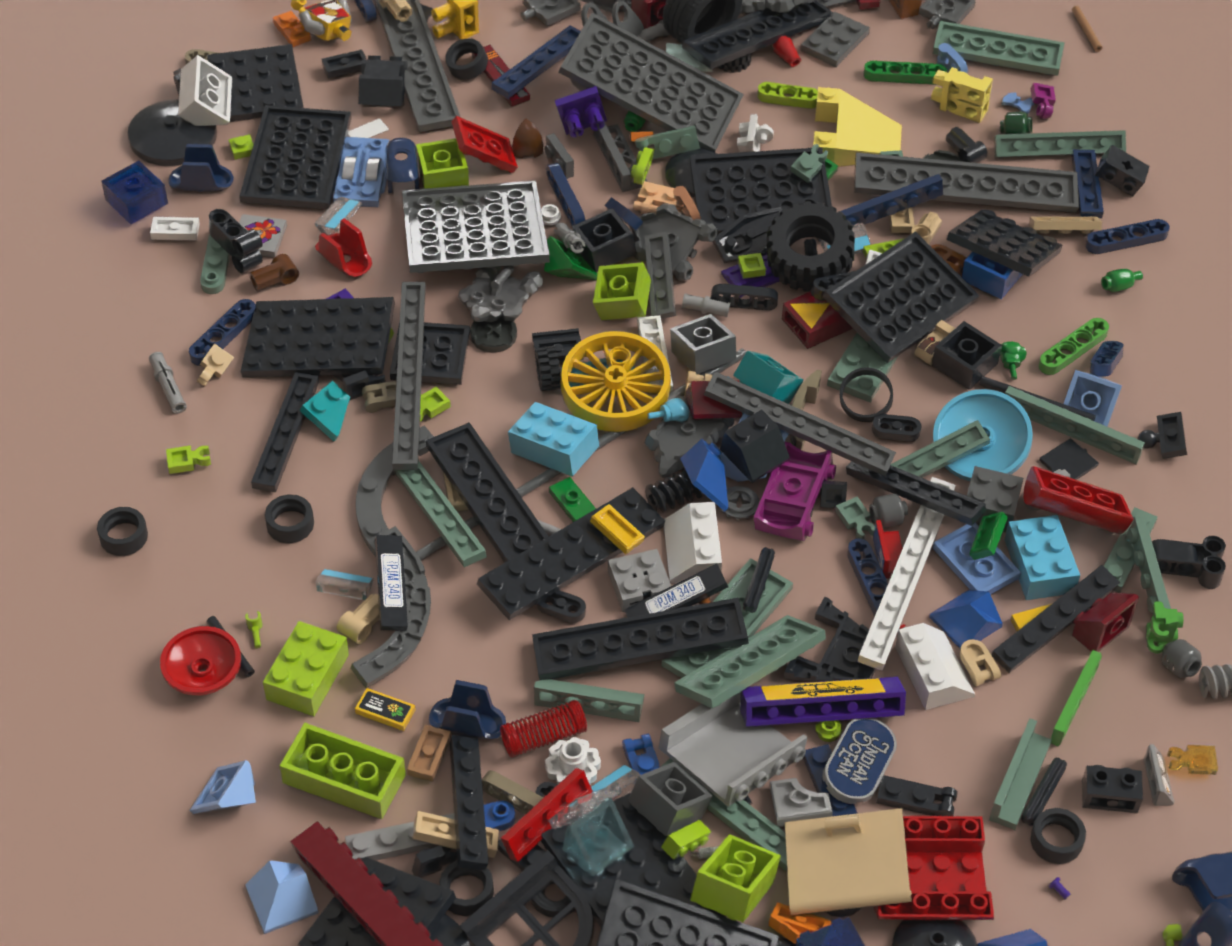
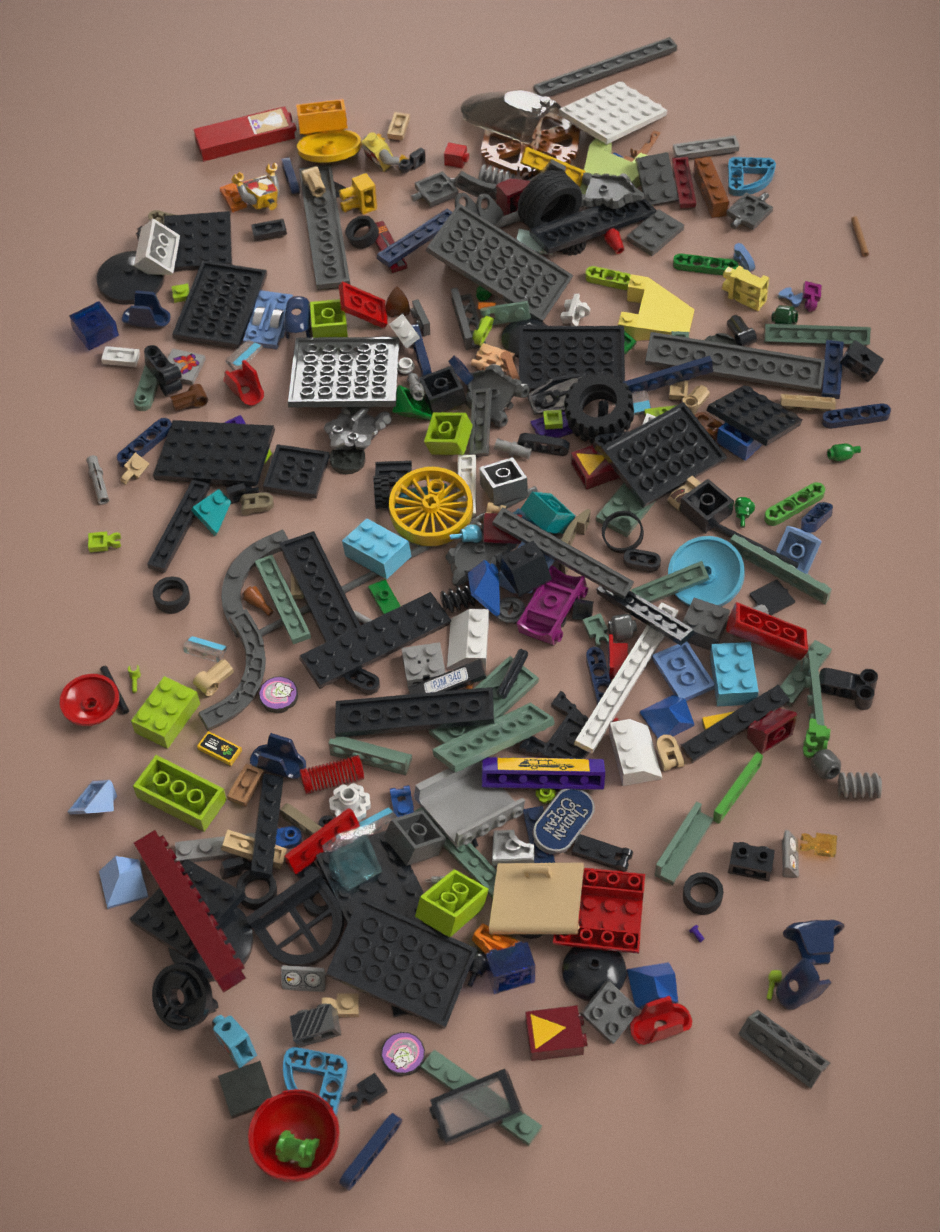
camera: 10 degrees right, 5 degrees up
(118, 516) = (50, 605): black tyre -> none
(369, 129) = (279, 285): white sticker -> none
(382, 81) = (293, 246): black piece -> none
(391, 583) = (236, 652): tile -> none
(400, 512) = (254, 597): none -> dark orange cone
(409, 377) = (276, 490): dark grey plate -> none
(433, 403) = (291, 512): lime plate -> none
(452, 633) = (278, 694): none -> tile
(543, 172) = (404, 331): none -> white plate
(581, 111) = (441, 283): dark purple plate -> none
(617, 529) = (411, 624): yellow tile -> none
(686, 839) = (422, 869): lime piece -> none
(809, 165) = (611, 340): sand green plate -> none
(988, 535) = (693, 654): green plate -> none
(1001, 48) = (786, 249): sand green plate -> none
(1044, 791) = (700, 857): black axle -> none
(1170, 435) = (855, 585): black plate -> none

